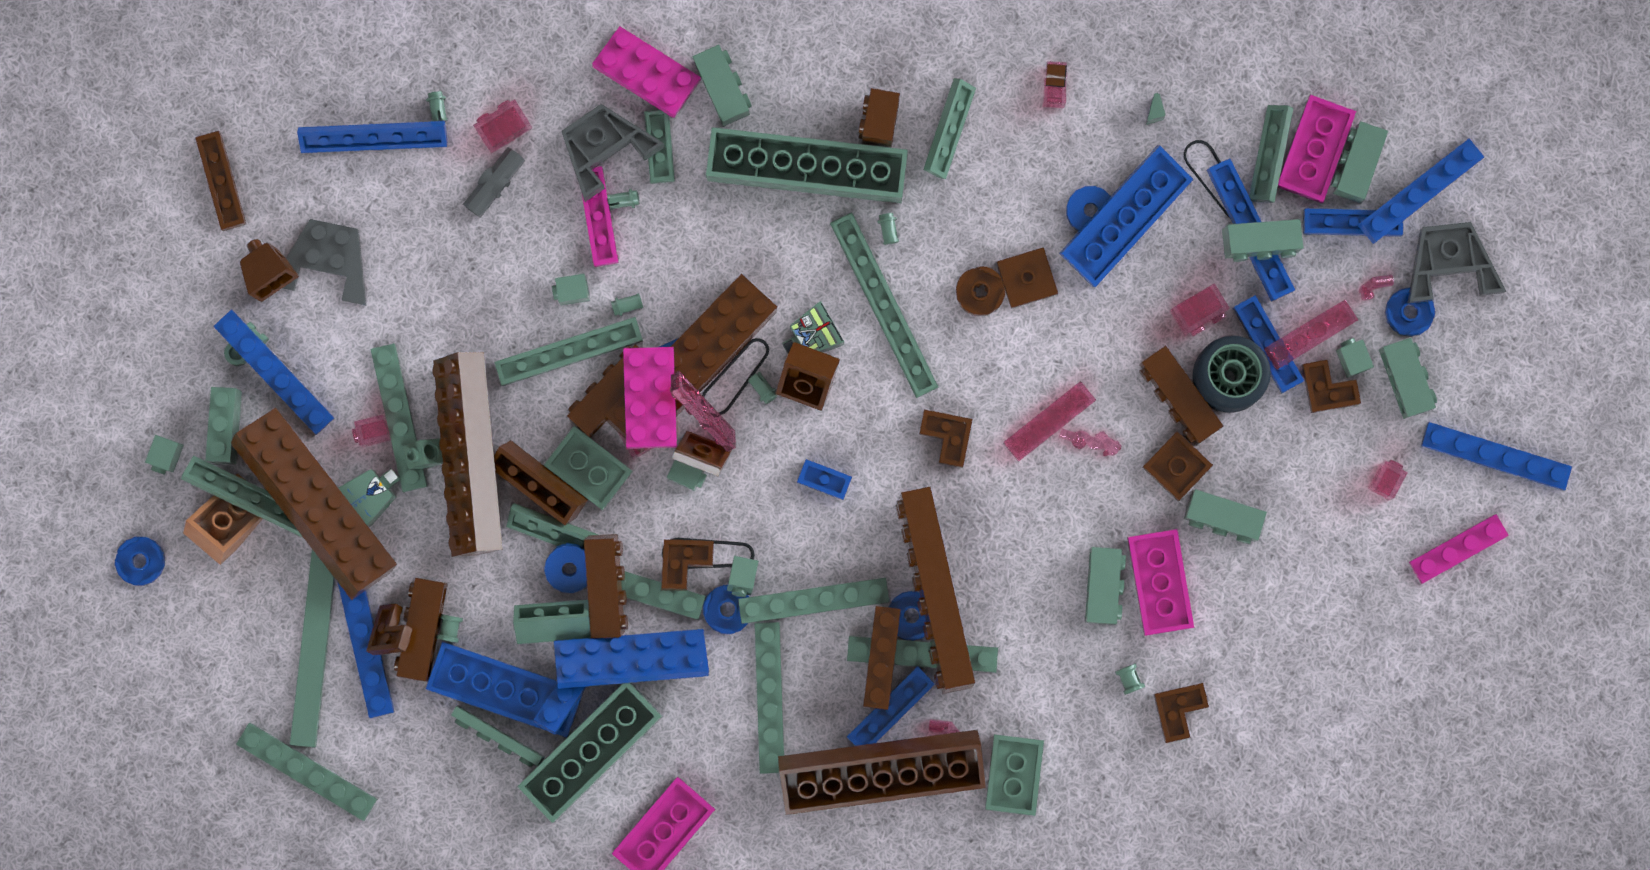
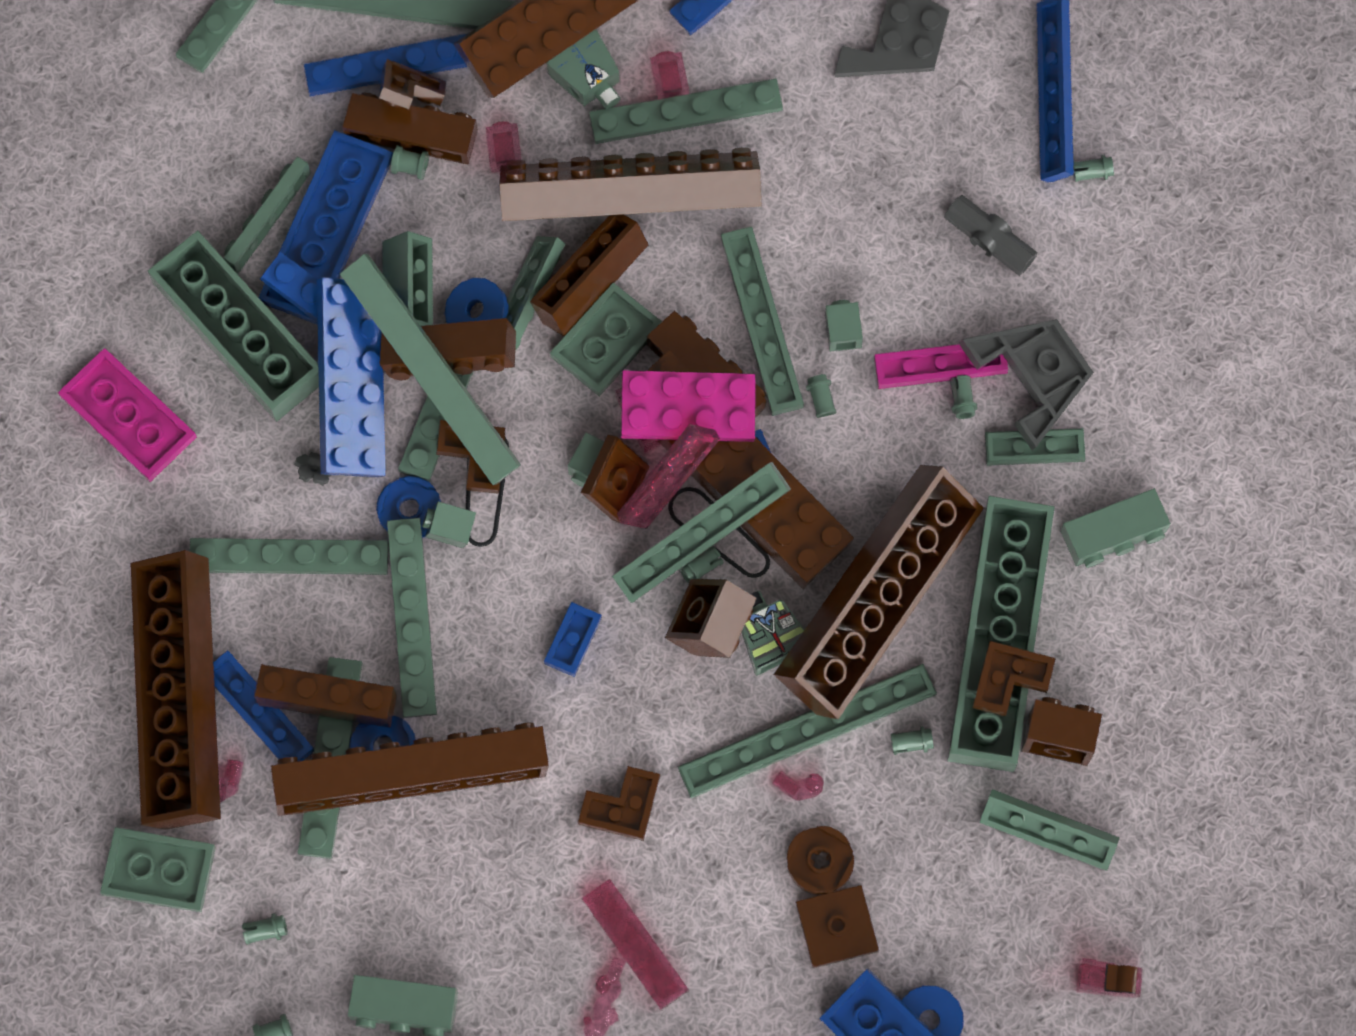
camera: 90 degrees right, 10 degrees down
(423, 454) = (632, 122): sand green brick -> none
(434, 556) = (502, 144): none -> clear pink brick
(502, 125) = (1066, 247): clear pink brick -> none
(624, 597) = (430, 369): none -> sand green tile
(646, 72) = (1136, 433): dark pink plate -> none
(700, 685) = (310, 468): none -> dark grey plant
(744, 384) = (701, 532): none -> sand green plate
(781, 253) = (879, 591): none -> reddish brown brick
(839, 158) = (1010, 667): none -> reddish brown plate
(927, 307) = (799, 789): none -> clear pink arm
(1053, 691) = (265, 929): none -> sand green pin

